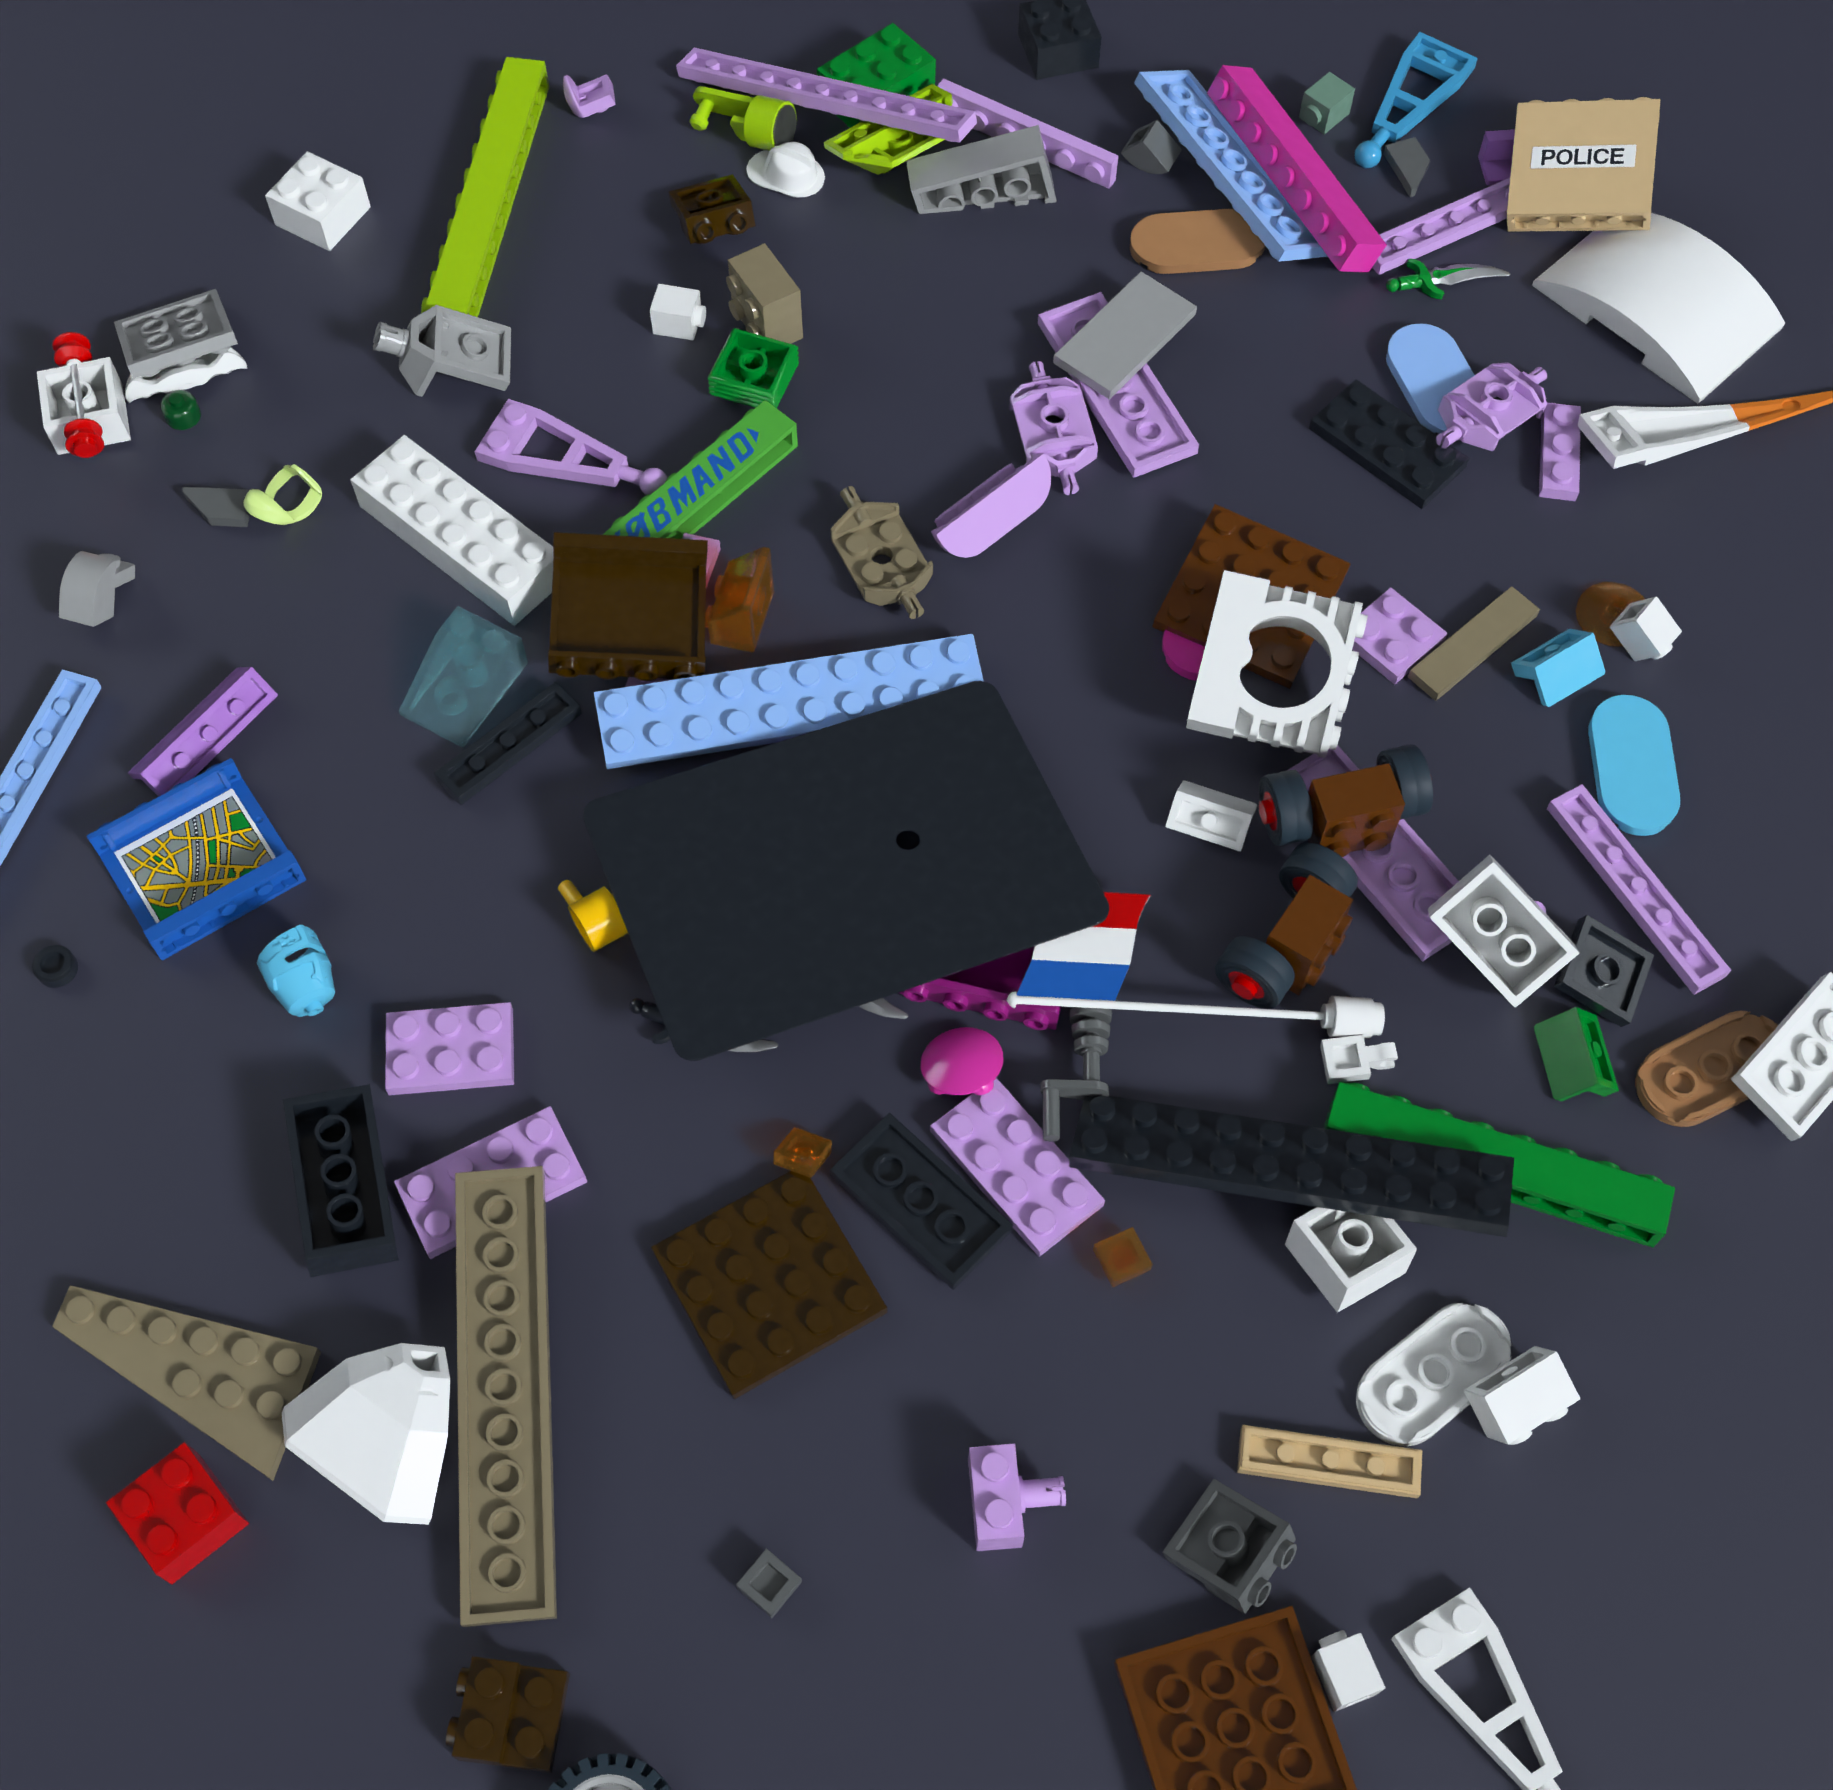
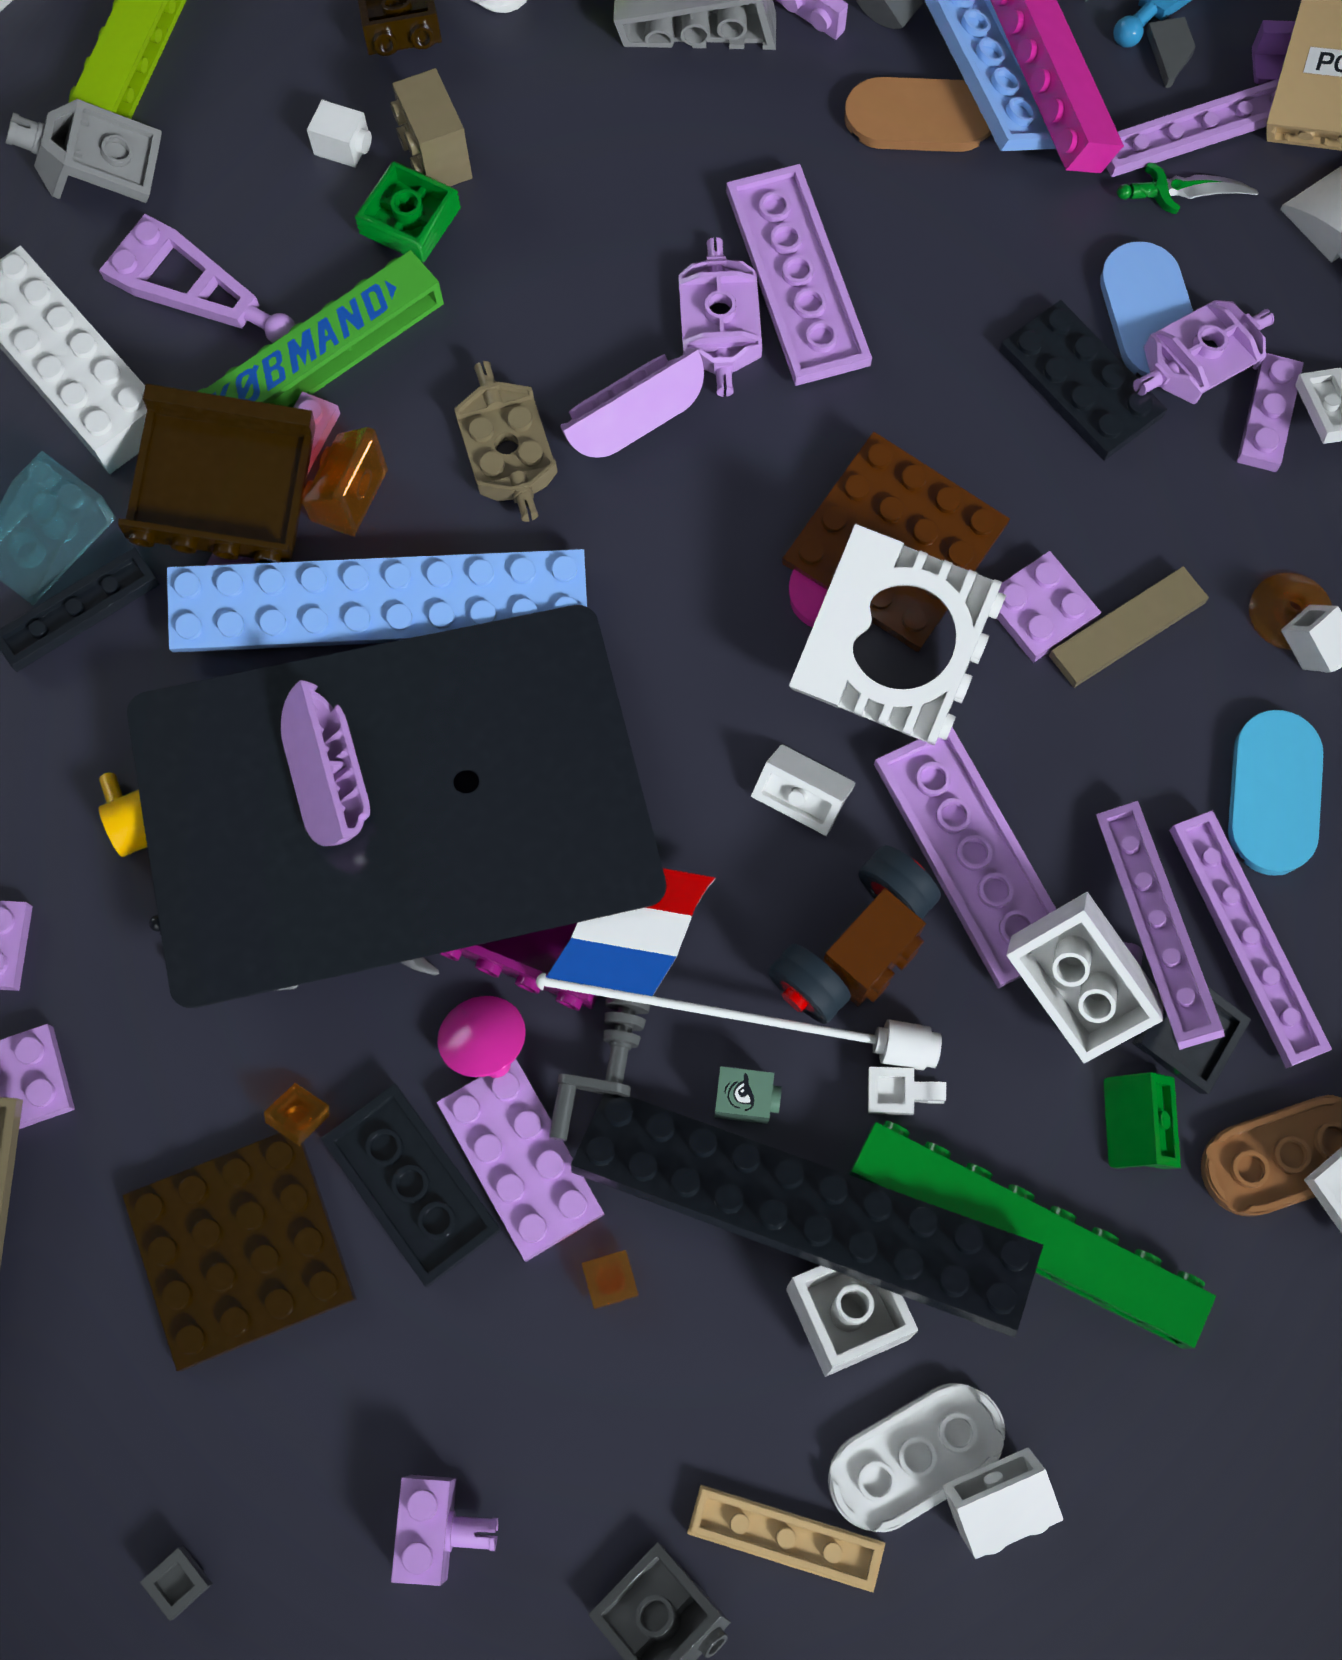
camera: 10 degrees right, 10 degrees up
(777, 838) = (323, 766): none -> lavender brick
(1125, 335) = (815, 218): light grey tile -> none
(1214, 1080) = (746, 1095): none -> sand green brick
(1348, 808) = (948, 813): brick -> none
(1558, 882) = (1160, 926): none -> lavender plate
(1561, 665) = (1219, 666): medium azure panel -> none

